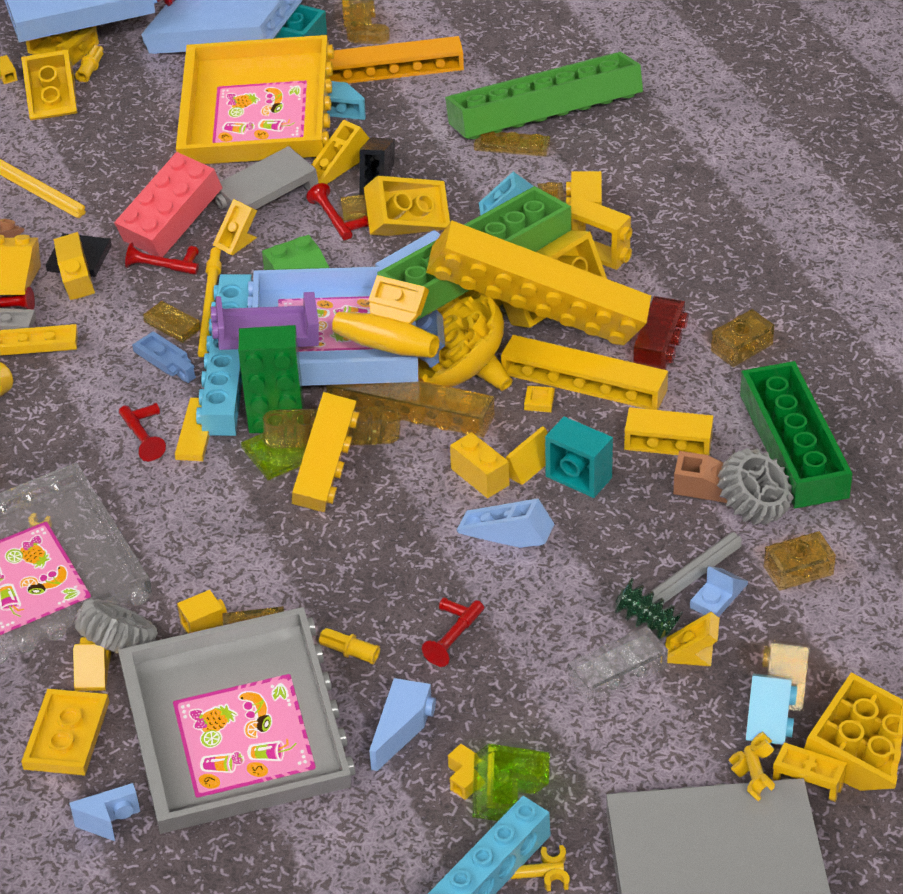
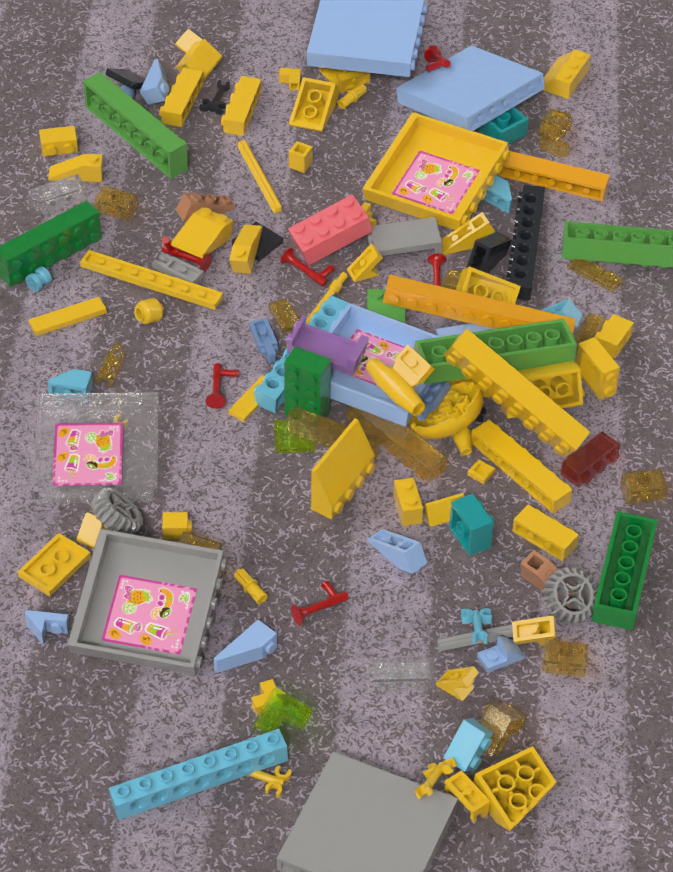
camera: 25 degrees right, 5 degrees up
(73, 144) = (300, 157): none -> yellow brick
(324, 452) = (307, 454): yellow brick -> none
(379, 463) = (341, 471): none -> yellow slope
(384, 224) = (463, 305): none -> light orange brick
(410, 134) = (526, 239): none -> black brick
(646, 610) = (440, 647): clear green piece -> none
(665, 561) = (477, 617): none -> medium azure bar
(745, 542) = (534, 630): none -> yellow slope

